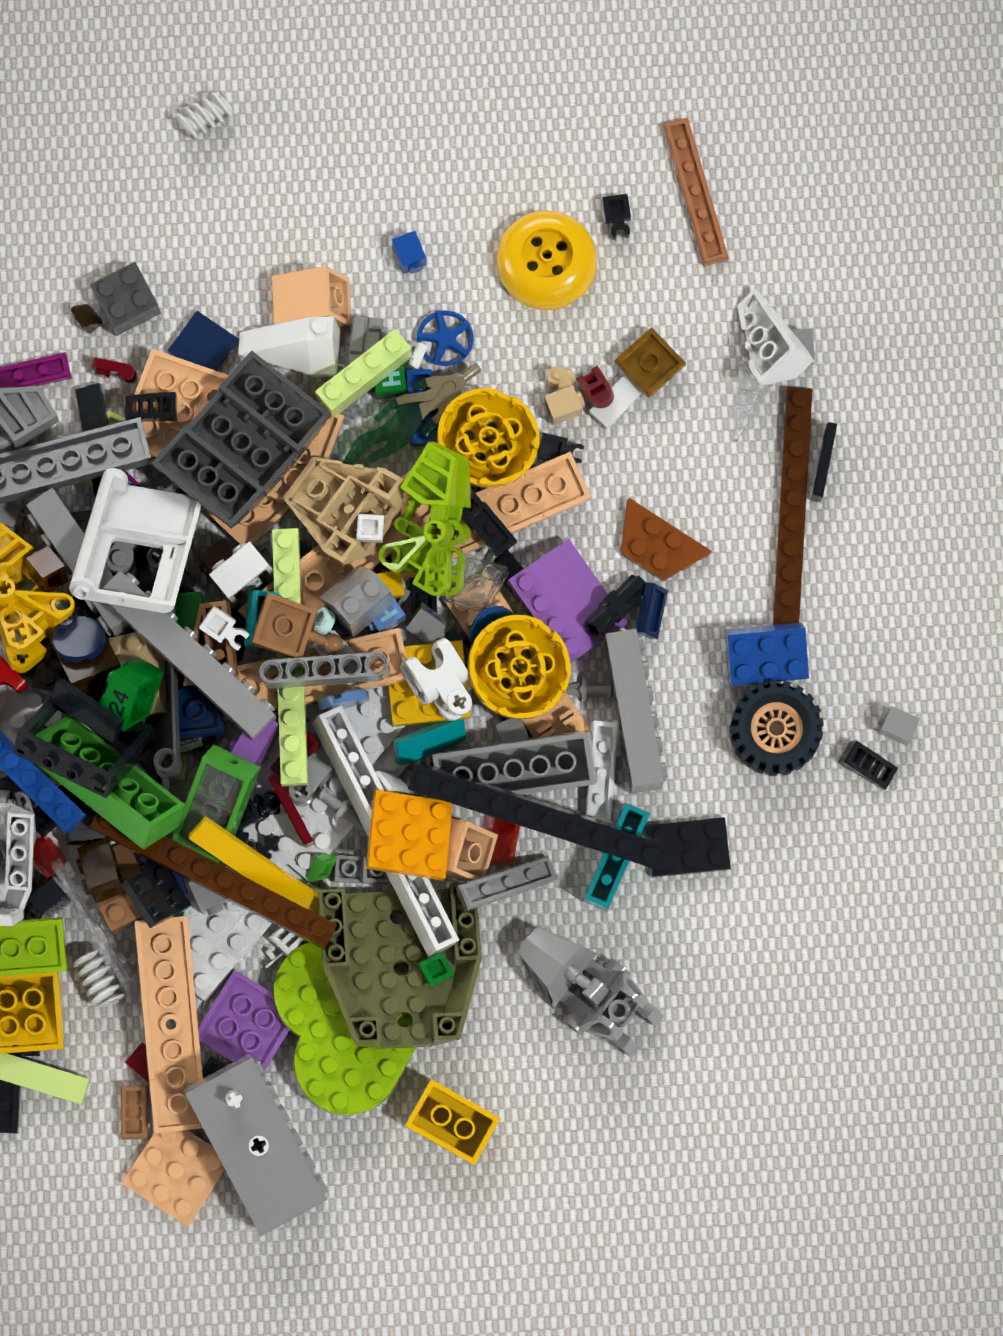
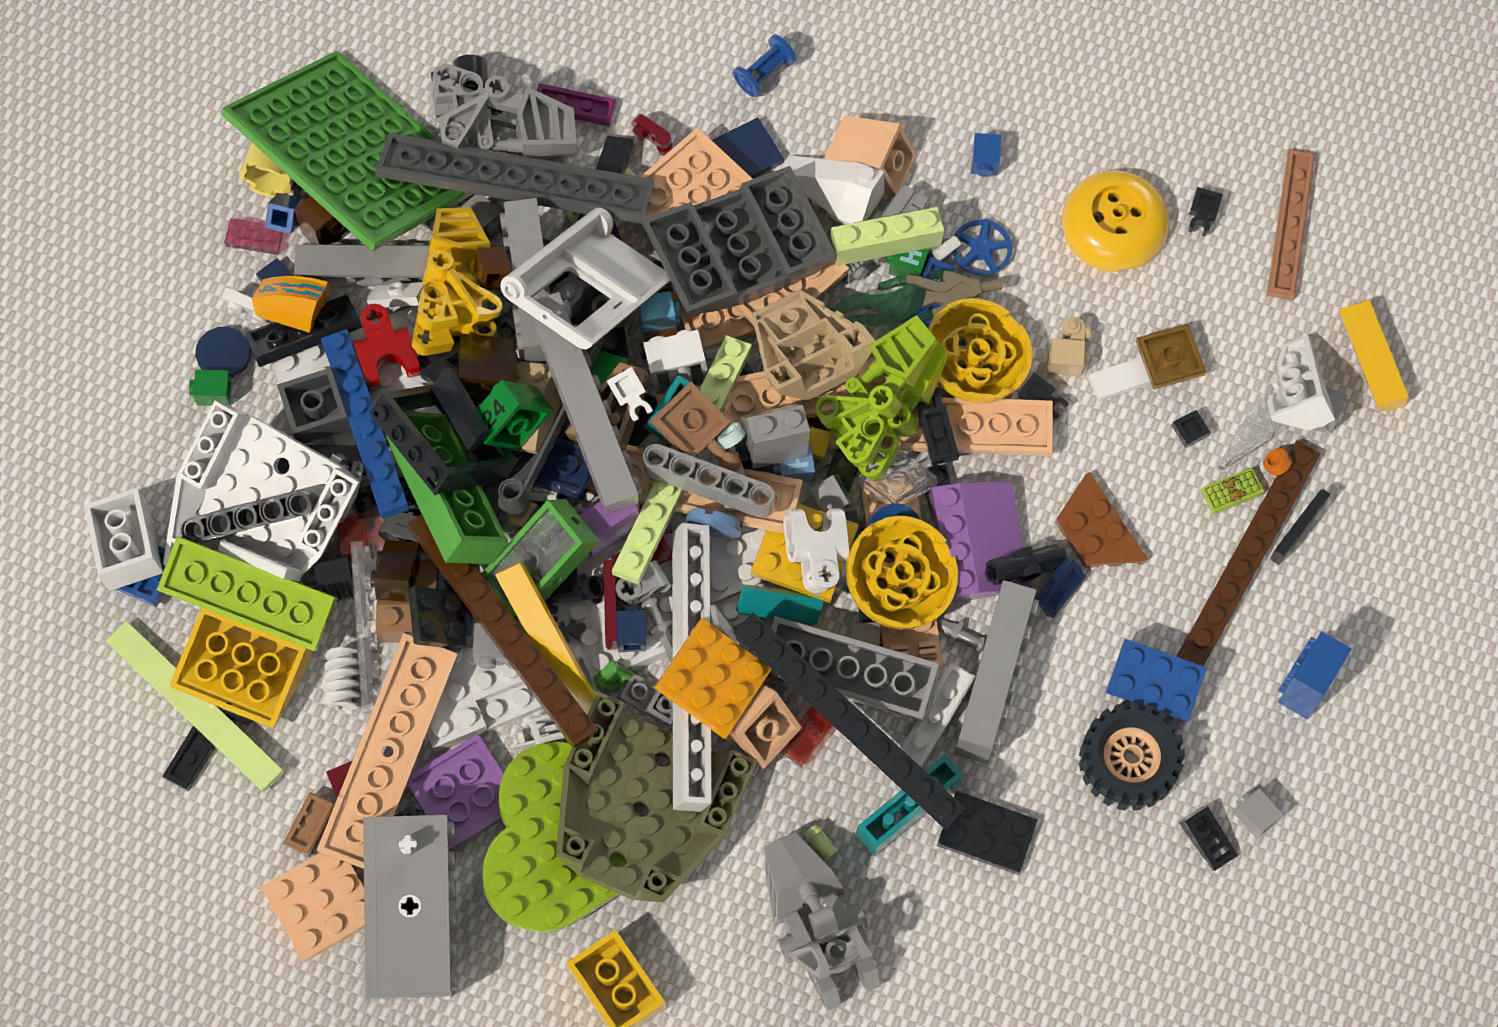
camera: 25 degrees right, 10 degrees down
(79, 639) = (488, 344): dark blue tile -> none
(86, 317) = (651, 78): dark brown slope -> none
(125, 298) = (696, 76): dark grey brick -> none
(170, 397) = (674, 188): black slope -> none
(180, 260) = (779, 53): none -> blue hose
(206, 534) = (659, 313): none -> medium azure brick
(319, 823) = (631, 630): none -> dark blue brick
(370, 528) = (820, 373): white tile -> none
(436, 970) = (674, 824): green plate -> none
(506, 883) = (787, 777): light grey tile -> none
(558, 922) = (820, 842): none -> yellowish green pin
(600, 393) = (1106, 356): dark red plate -> none
(695, 418) = (1190, 429): none -> black plate
(754, 456) = (1232, 491): none -> lime tile
(780, 413) = (1277, 461): none -> orange tile
(818, 281) = (1374, 356): none -> yellow brick
(893, 590) = (1312, 674): none -> blue brick

